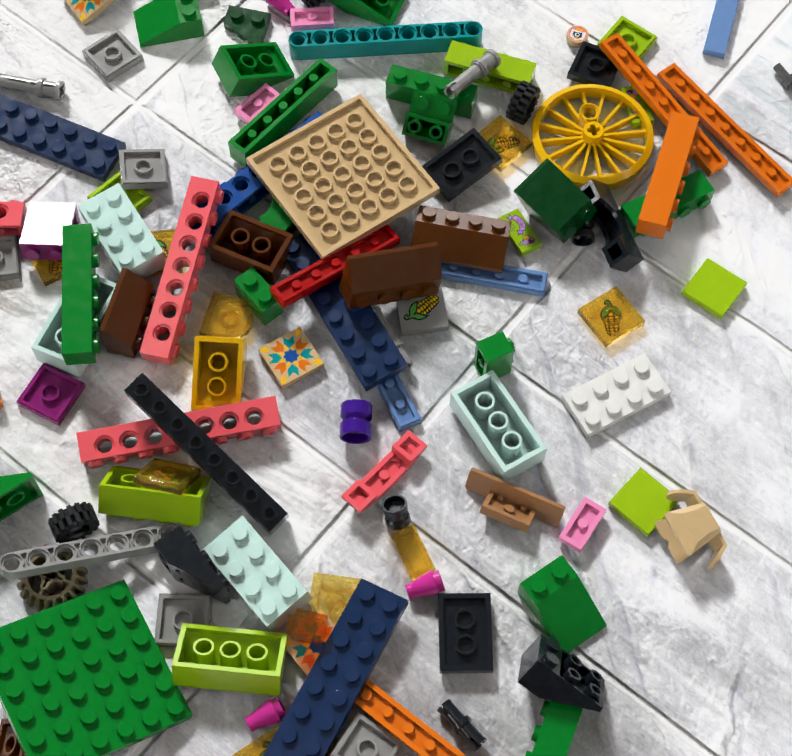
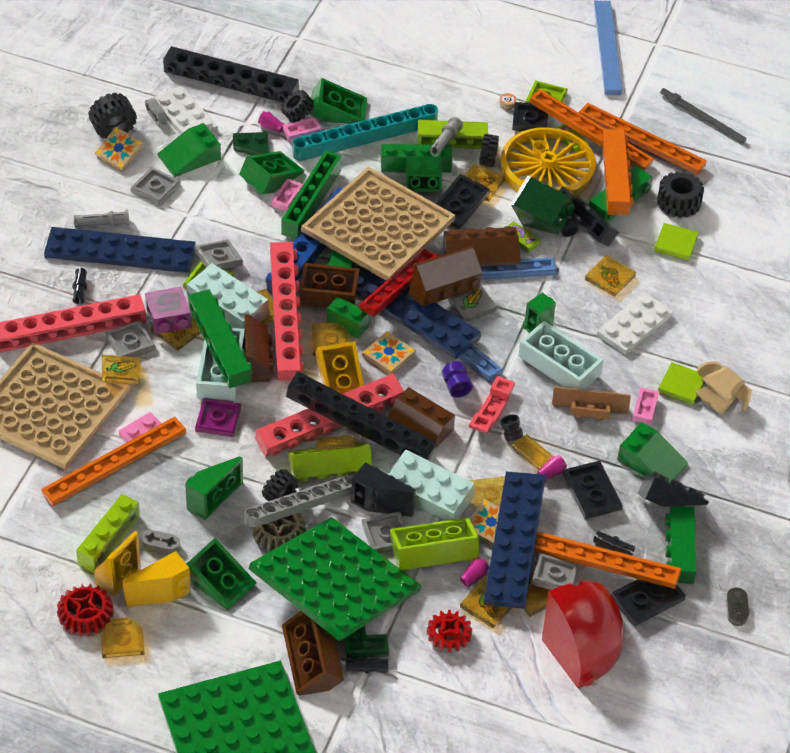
camera: 20 degrees left, 15 degrees down
(287, 468) = (422, 416): none -> reddish brown slope
(307, 626) = (482, 508): clear orange brick -> none
(745, 208) = (680, 194): none -> black tyre

